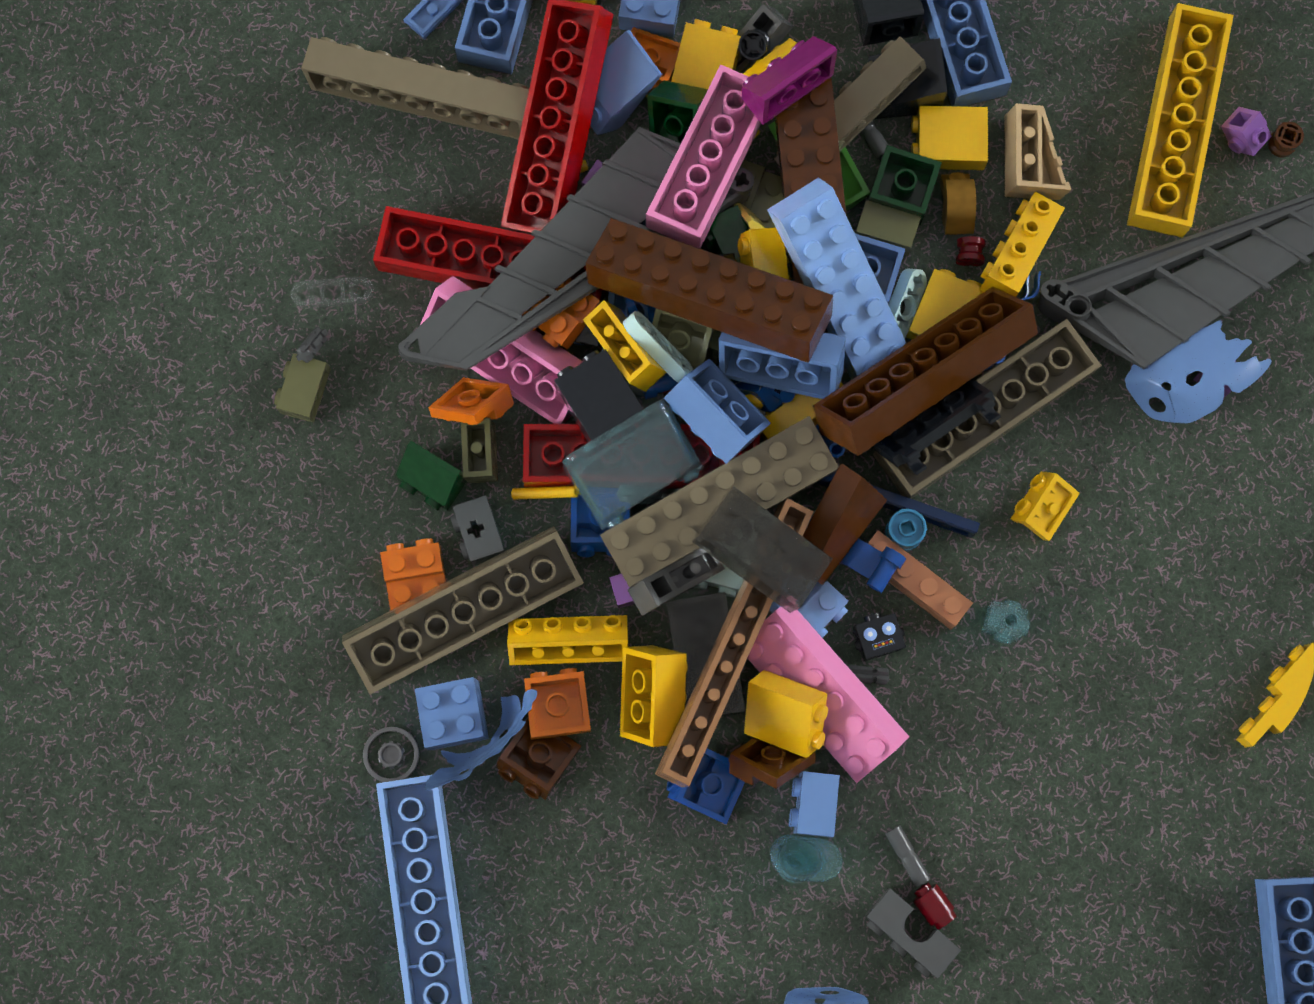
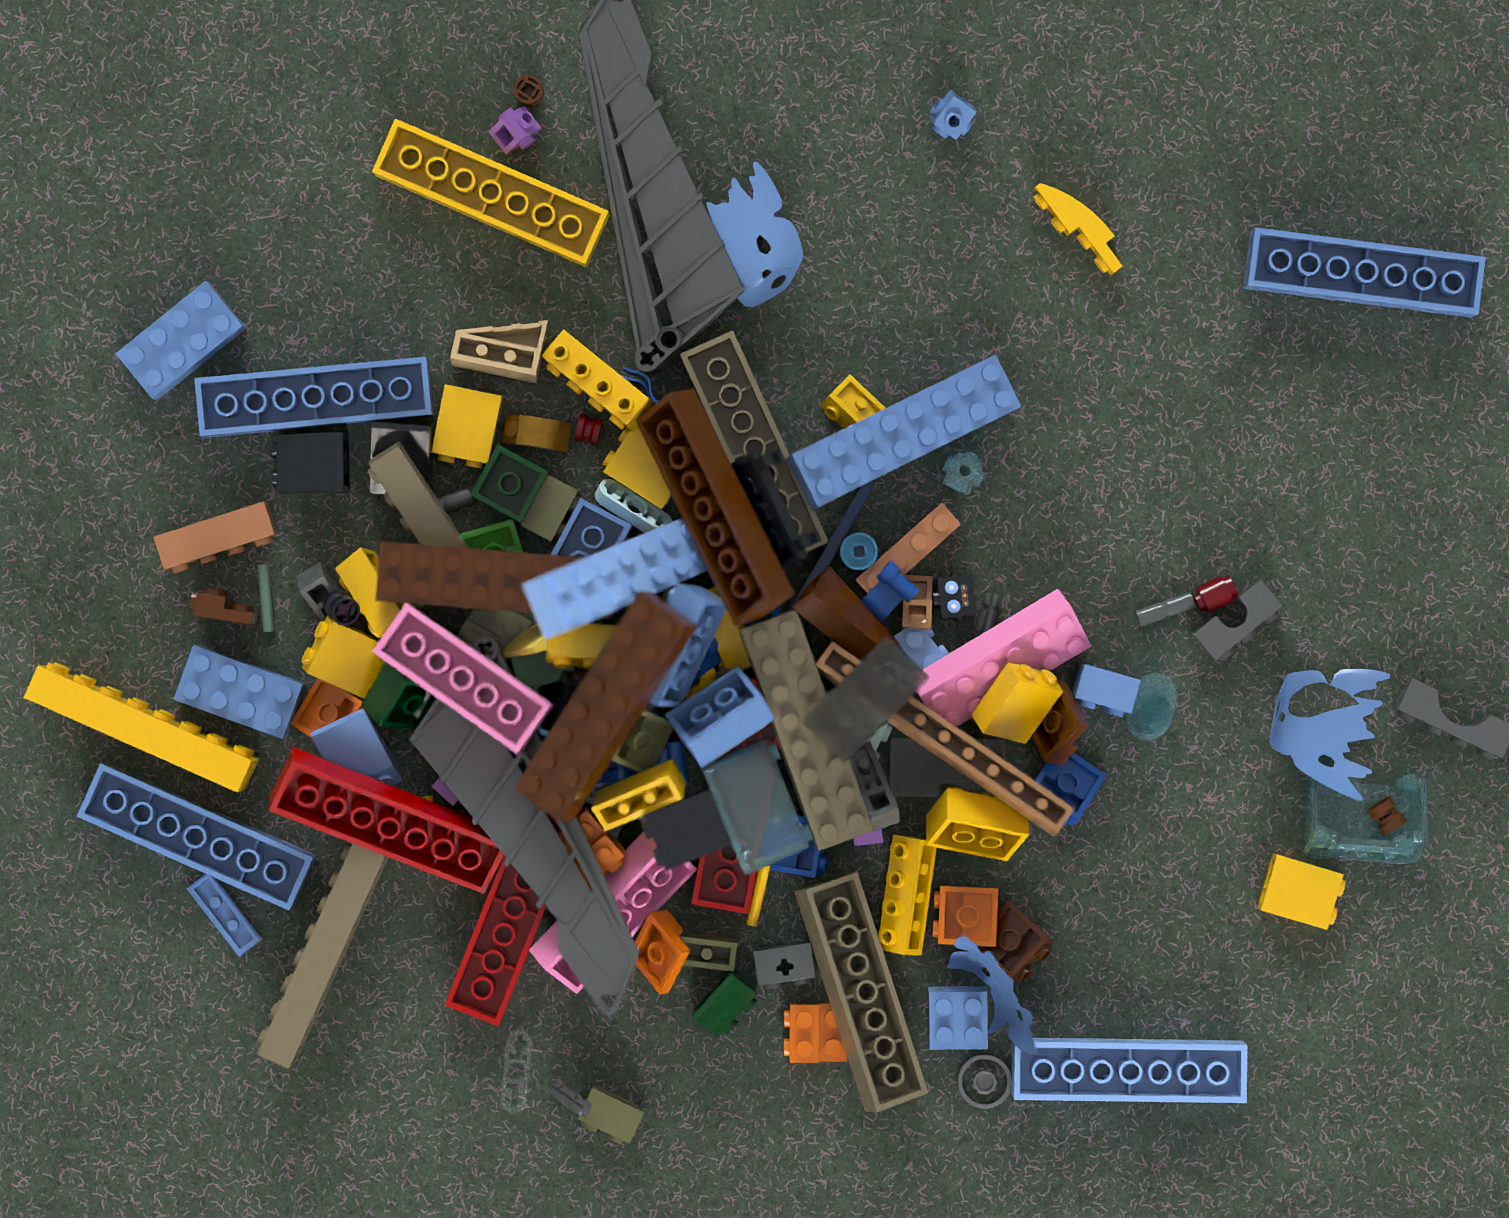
camera: 80 degrees left, 10 degrees up
(657, 346) = (647, 763): light aqua beam -> none
(789, 78) = (405, 590): magenta slope -> none
(863, 600) = (918, 612): none -> medium nougat slope
(1036, 552) = (903, 432): none -> medium blue brick

